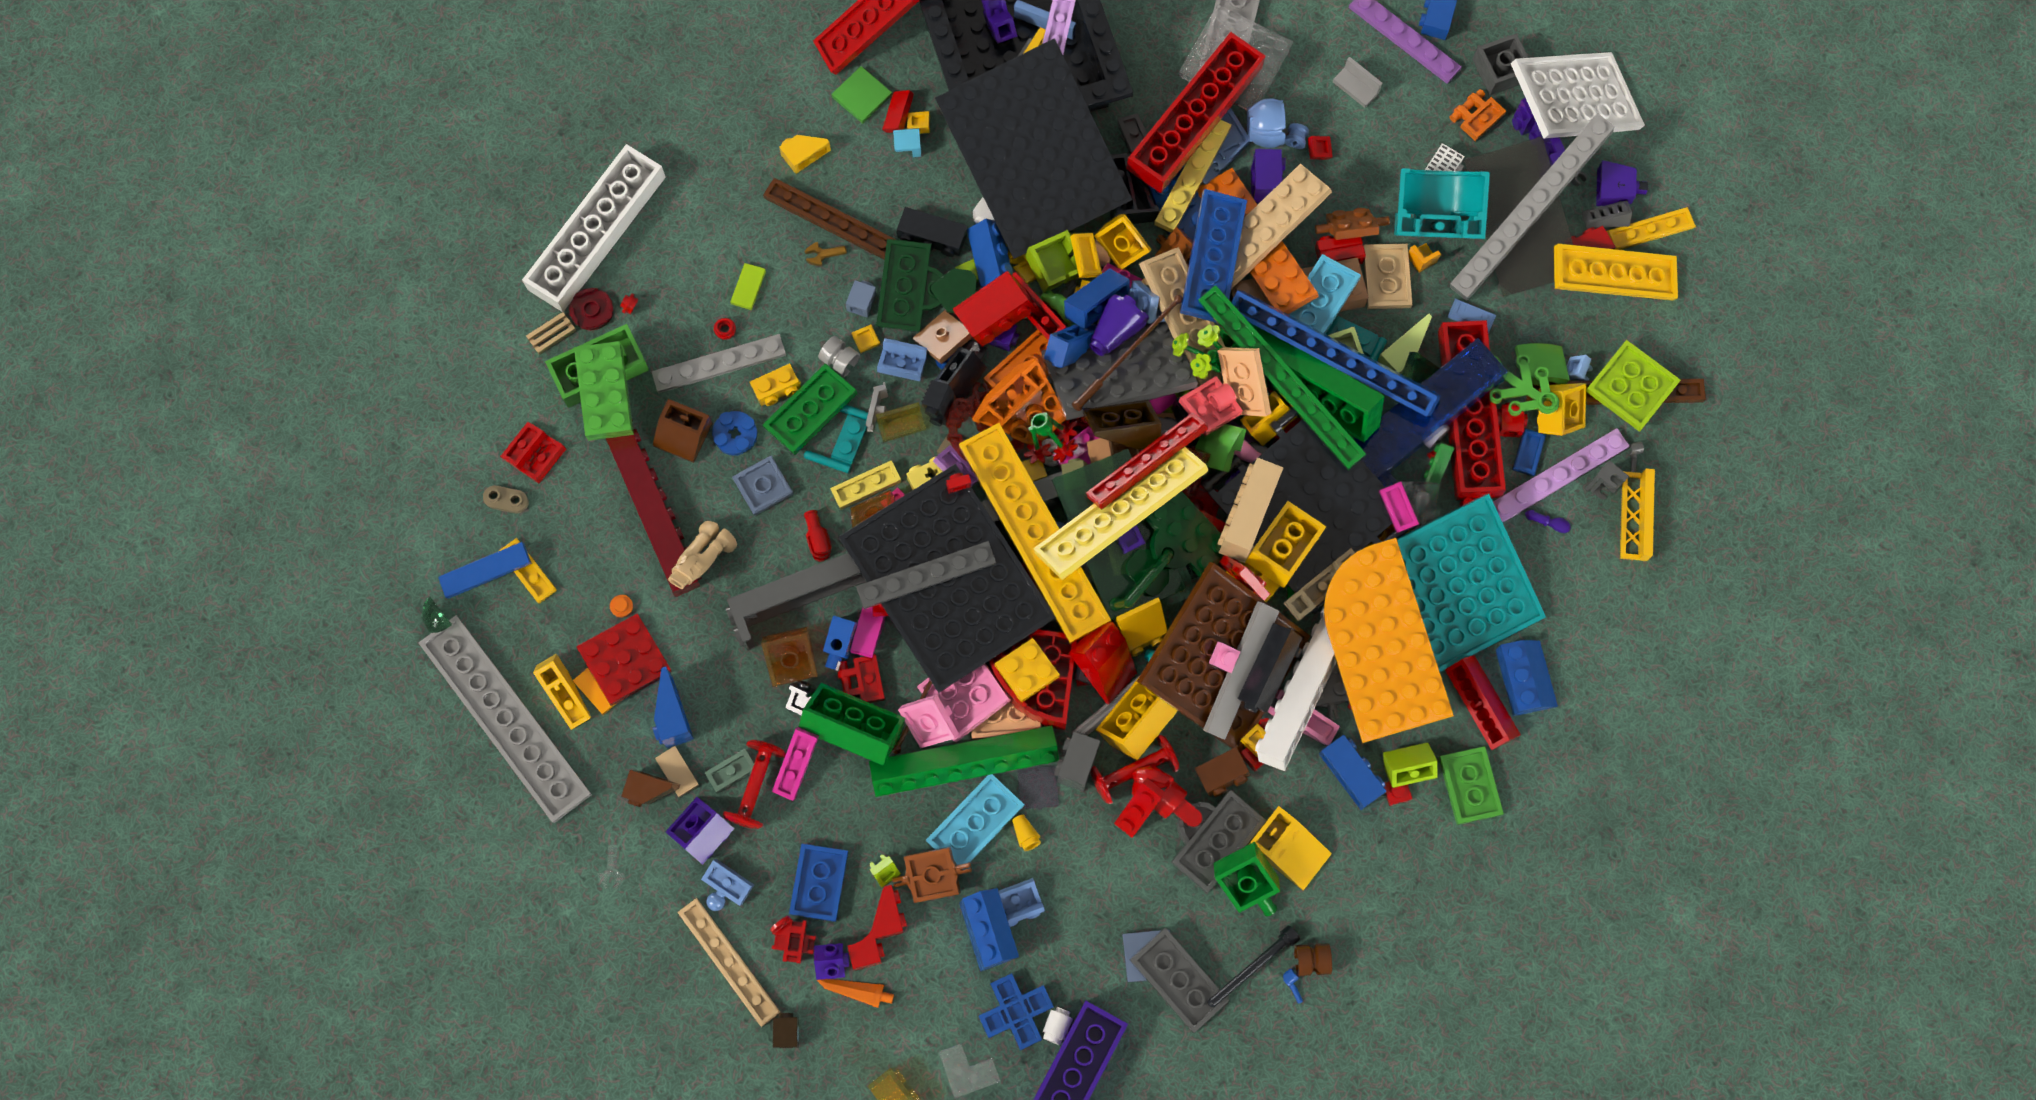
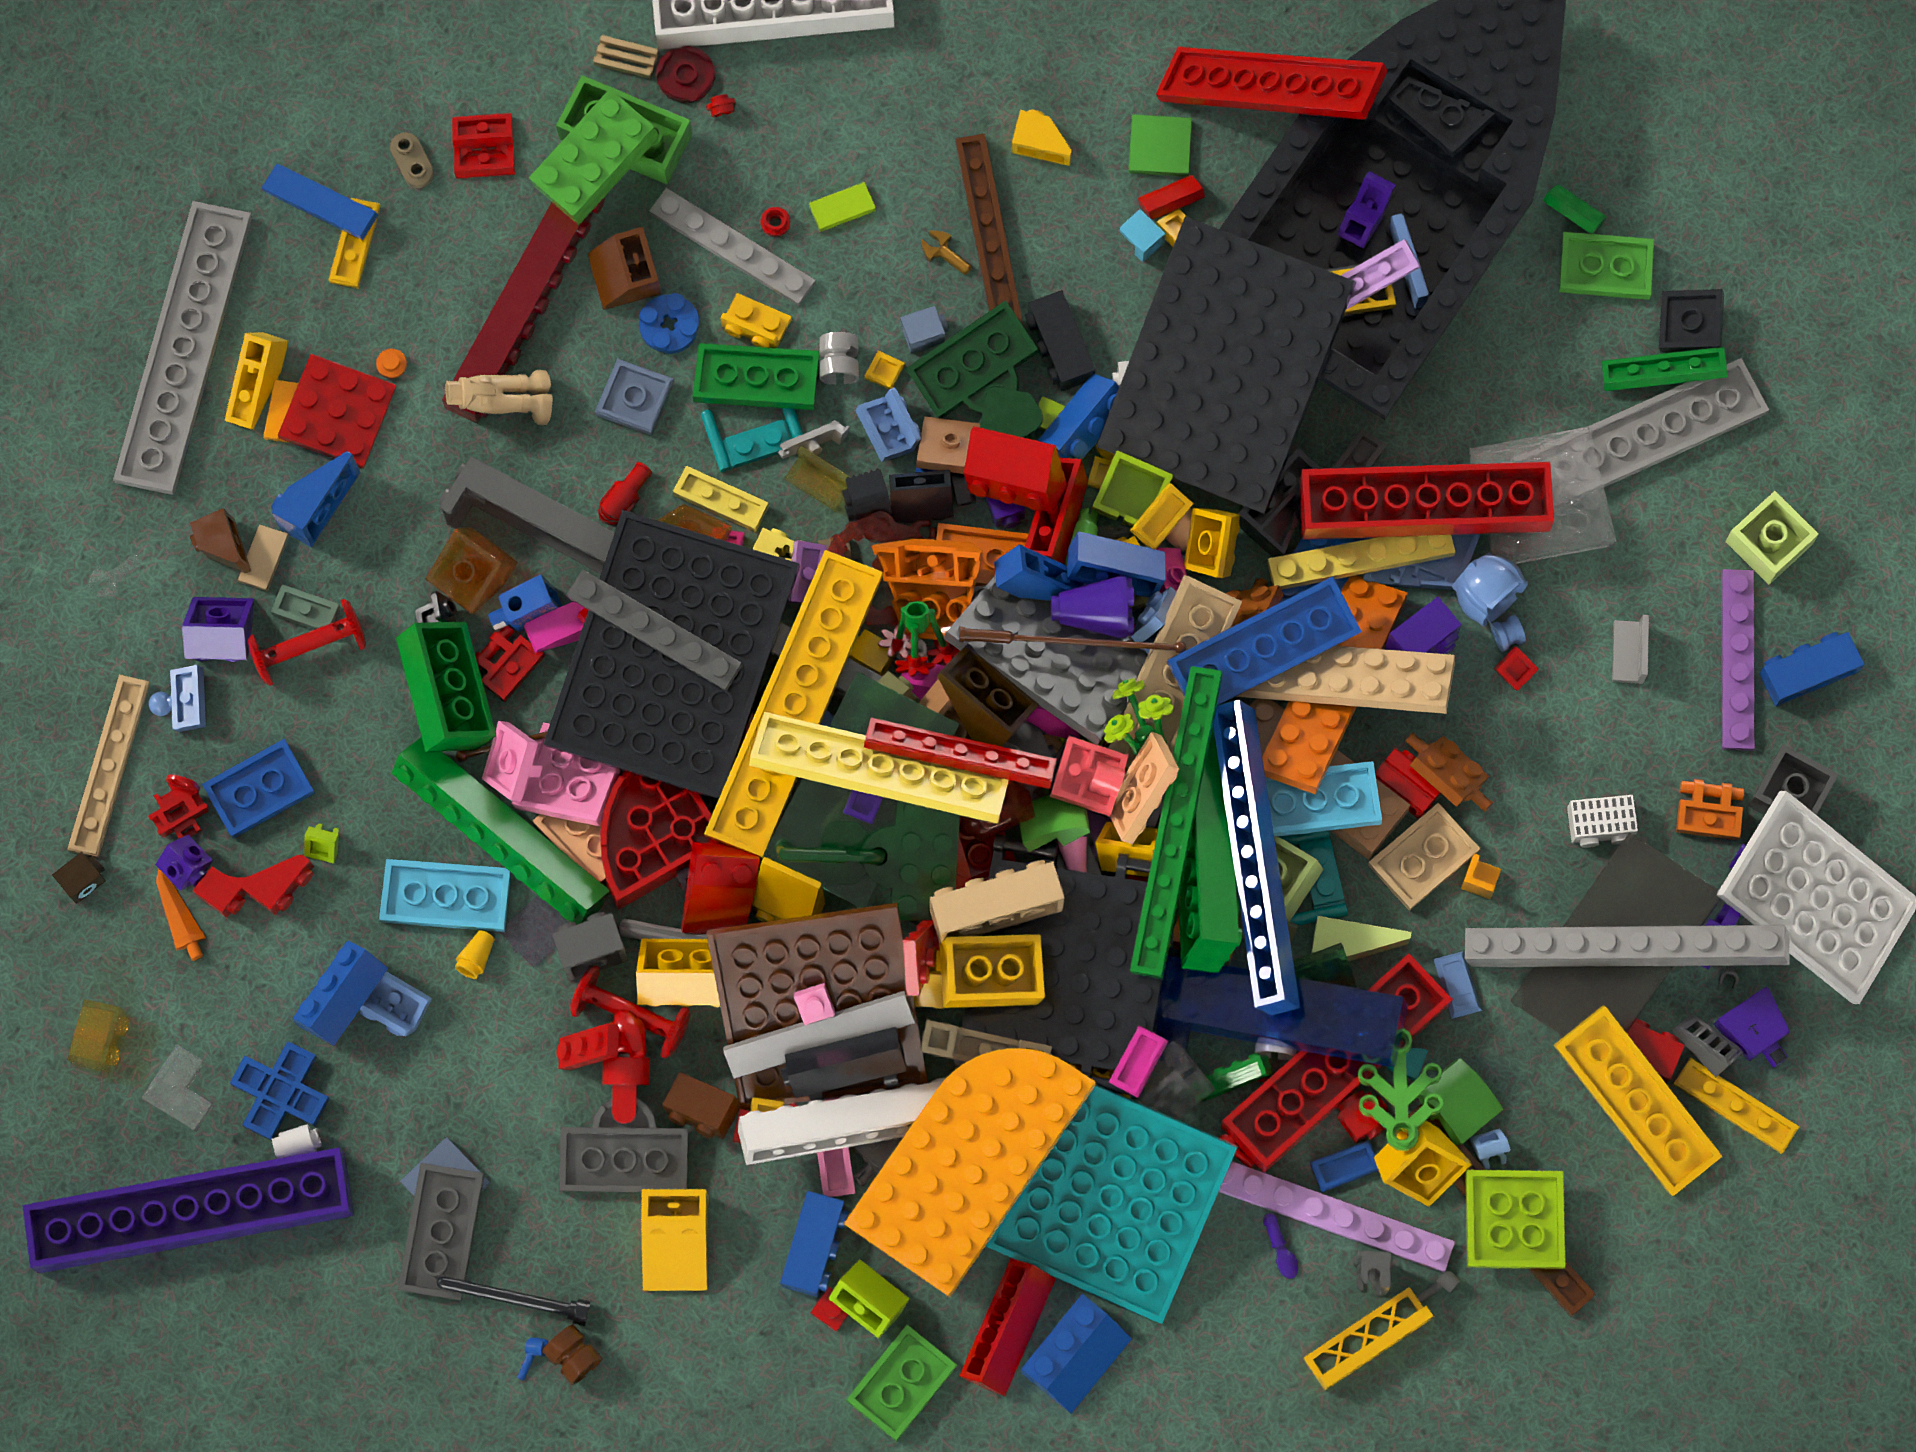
camera: 55 degrees right, 0 degrees up
(434, 617) = (232, 194): clear green brick -> none
(795, 763) = (360, 665): dark pink plate -> none
(932, 874) = (354, 893): dark orange plate -> none
(958, 482) = (776, 580): red plate -> none
(1027, 670) = (642, 815): yellow plate -> none
(1248, 879) = (601, 1218): green brick -> none
(1439, 201) = (1551, 844): teal piece -> none

